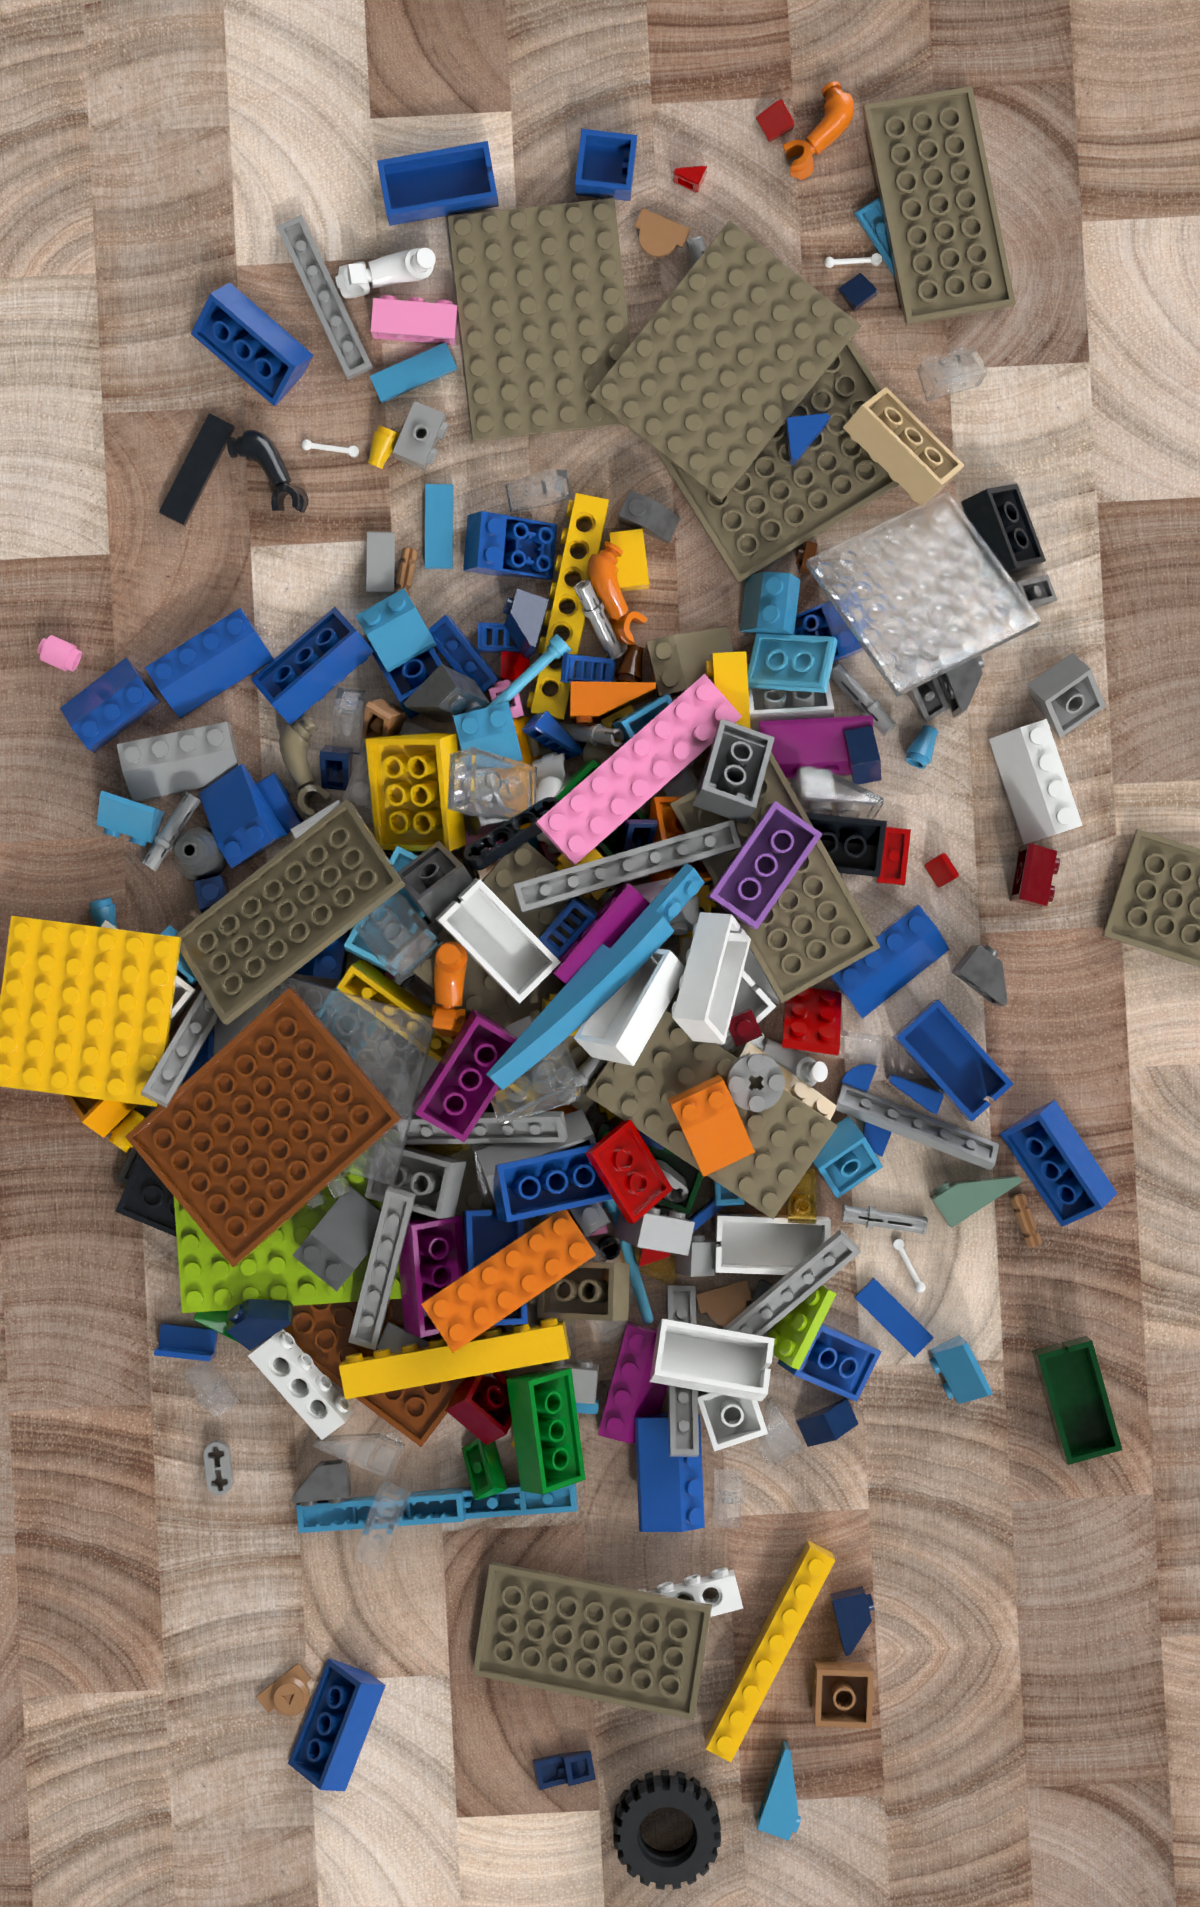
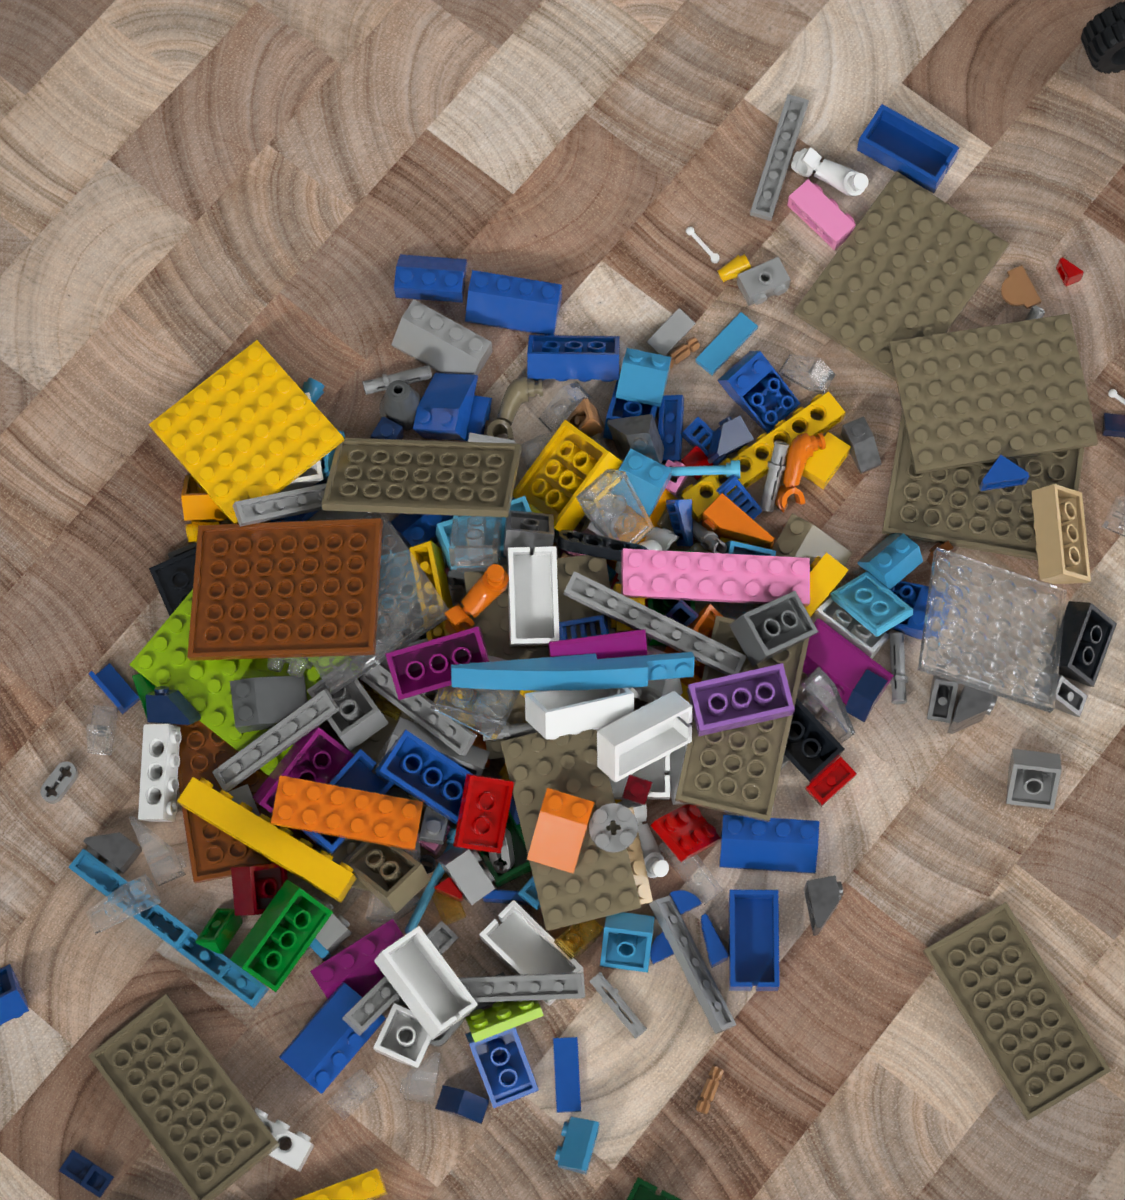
camera: 45 degrees right, 15 degrees down
(59, 653) = (429, 222): bright pink brick -> none
(129, 818) = (380, 348): dark azure slope -> none
(196, 469) = (610, 190): black tile -> none
(251, 343) = (710, 146): blue slope -> none
(261, 449) = (660, 210): black piece -> none
(335, 767) = (531, 425): dark blue slope -> none
(413, 372) = (793, 243): dark azure tile -> none
(605, 164) = (1021, 221): blue piece -> none
(631, 665) = (772, 521): reddish brown cone -> none
(699, 1259) = (475, 917): light grey brick -> none
(724, 1302) = (468, 964): medium nougat piece -> none
(898, 1244) = (612, 1031): white hinge -> none
(922, 748) = (909, 731): dark azure cone -> none
(941, 870) = (854, 817): red slope -> none
(964, 1198) = (682, 1037): sand green slope -> none
(1034, 875) = (911, 871): dark red slope -> none
(1035, 782) = (964, 814): white slope -> none
(1059, 1164) = (764, 1071): blue slope -> none

